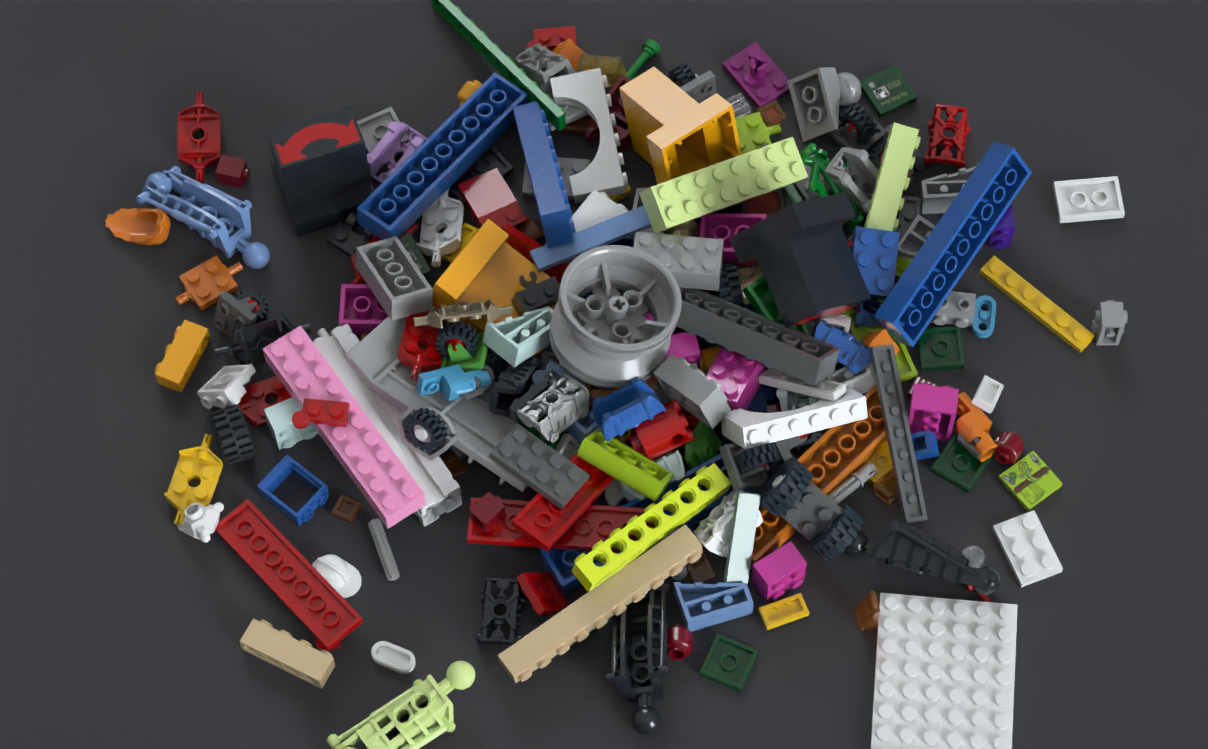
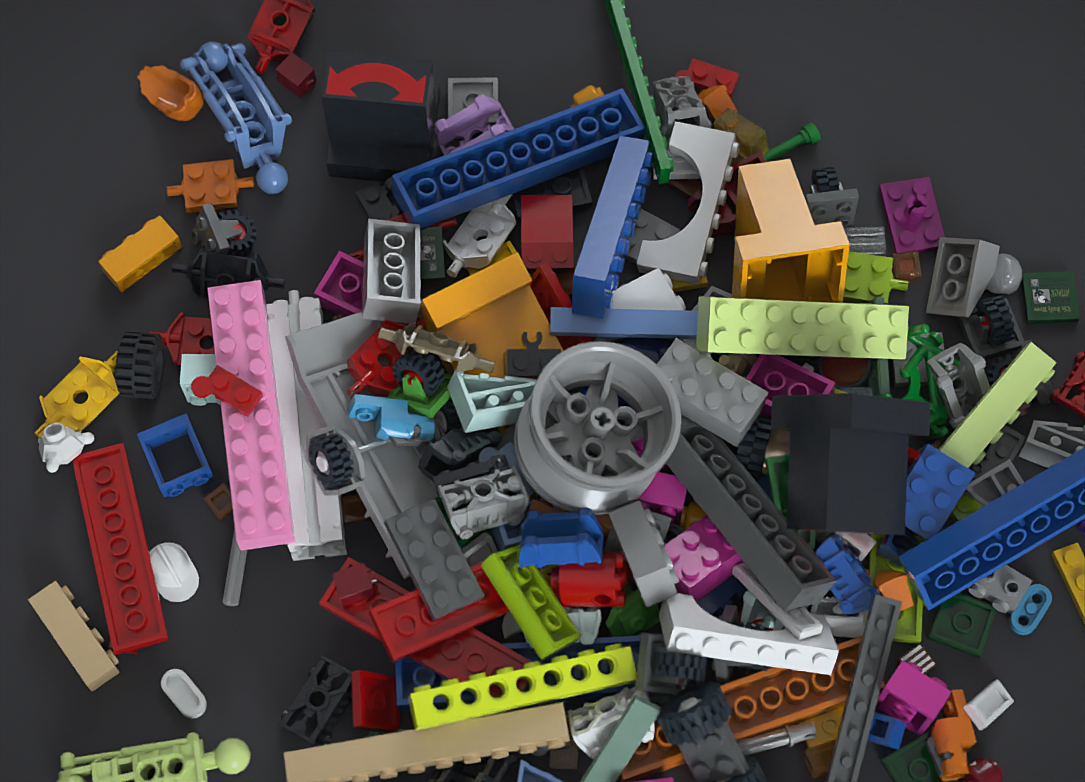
camera: 25 degrees right, 5 degrees up
(226, 386) = (160, 309): white plate -> none

